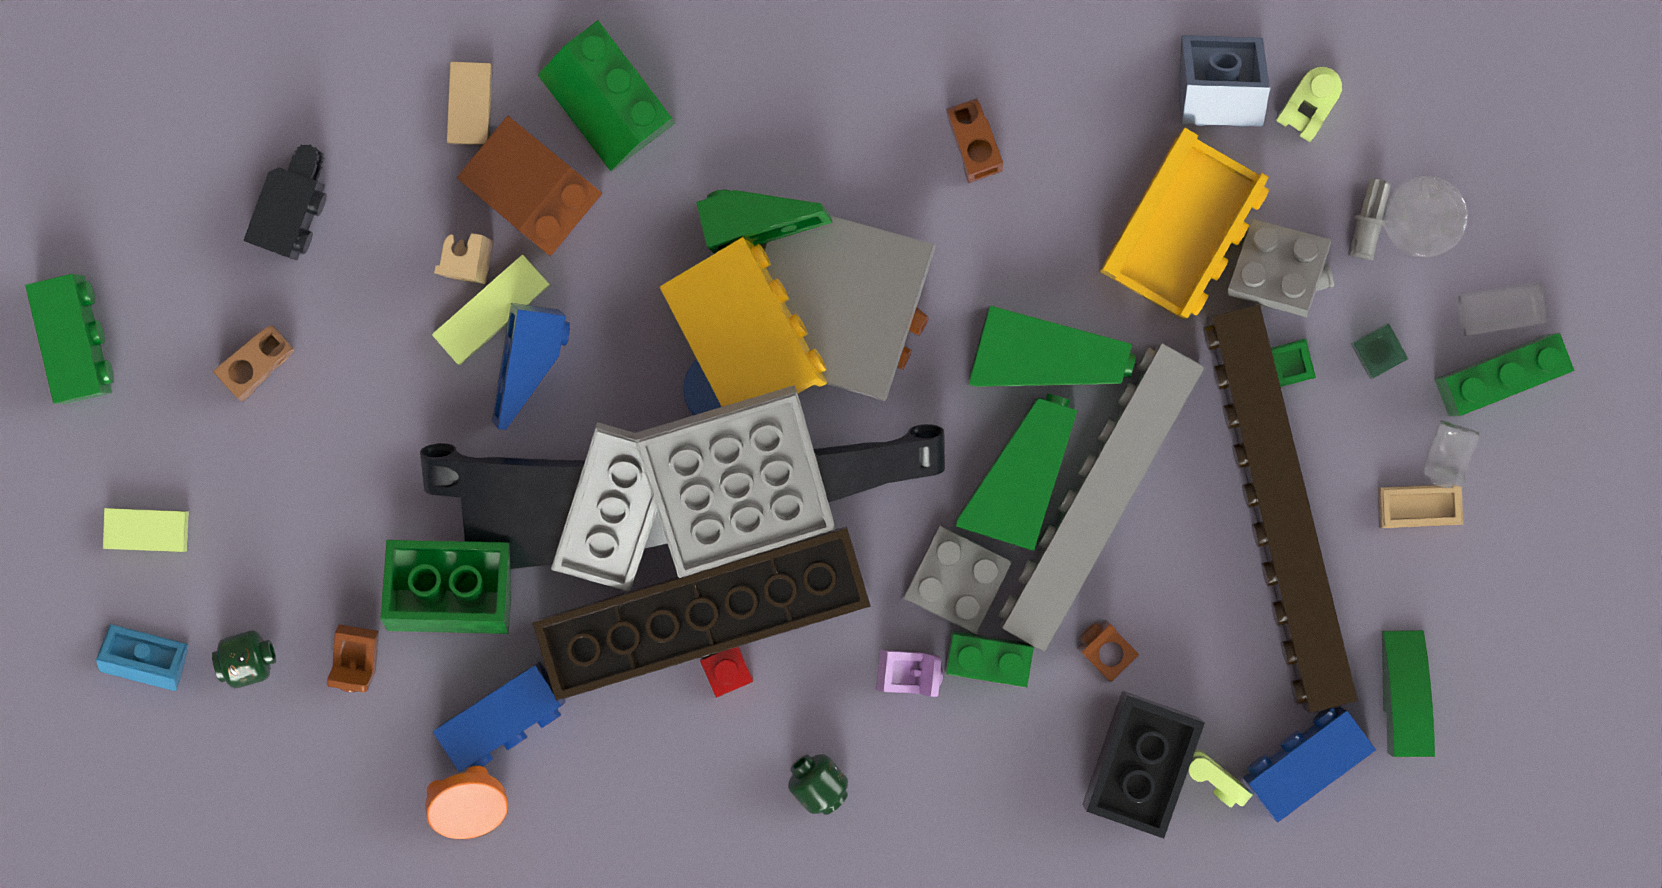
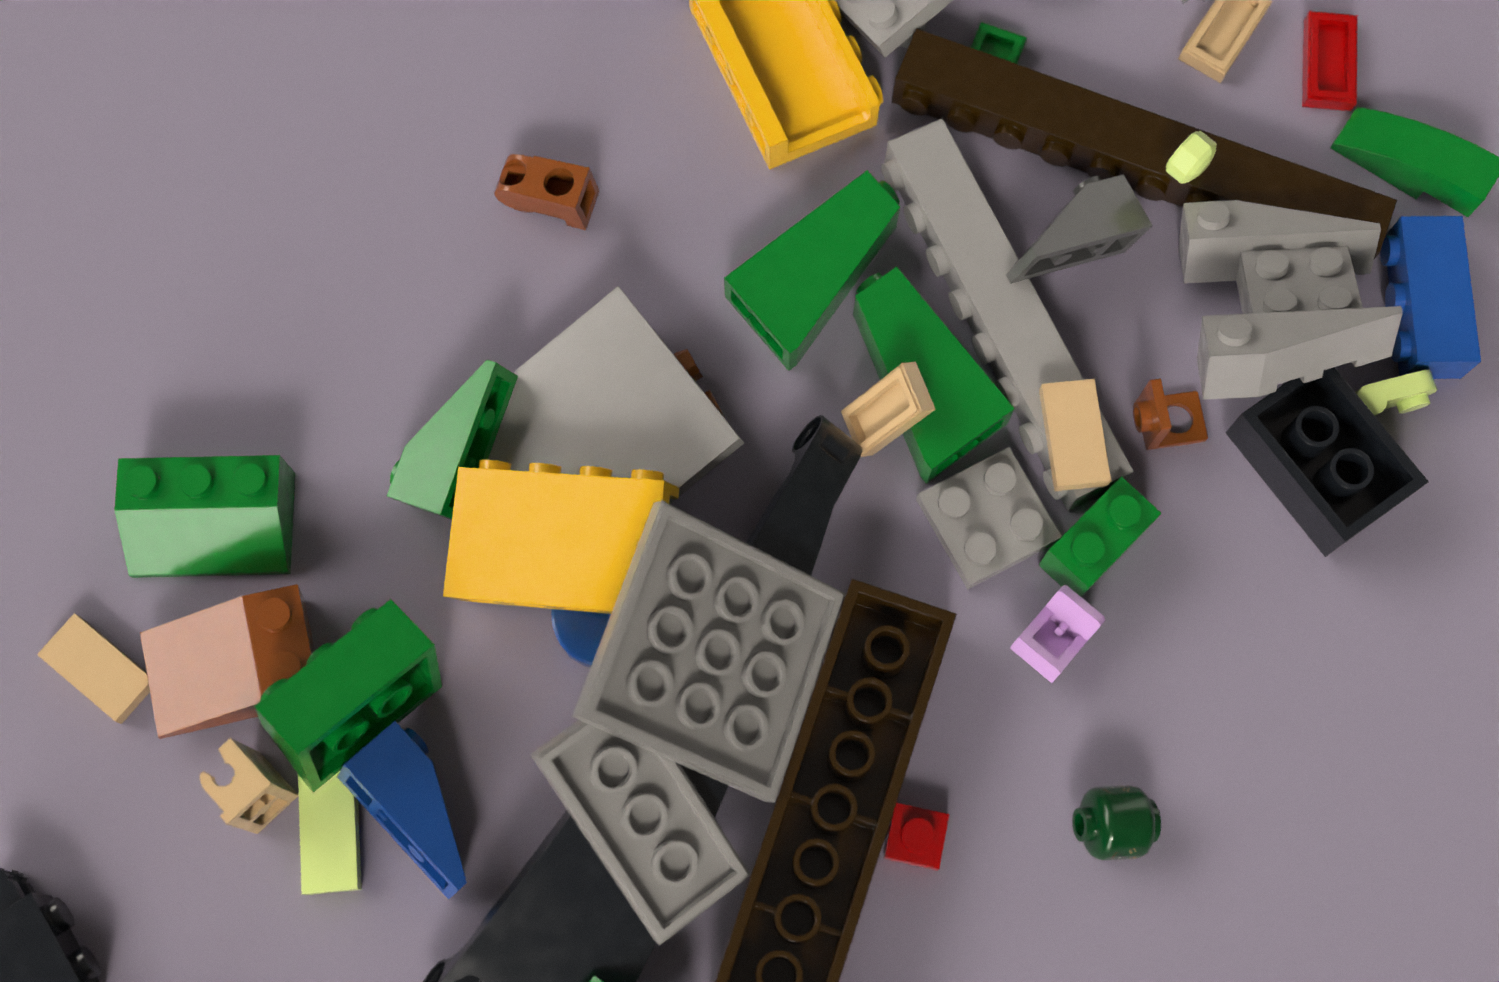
camera: 55 degrees left, 15 degrees down
(562, 278) = (350, 693): none -> green slope
(976, 471) = (888, 408): none -> tan tile
(1040, 600) = (1074, 435): none -> tan tile
(1194, 509) = (1093, 225): none -> dark grey slope
(1233, 678) = (1293, 293): none -> light grey wedge
(1285, 551) = (1191, 157): none -> yellowish green tile
(1447, 590) = (1330, 61): none -> red tile

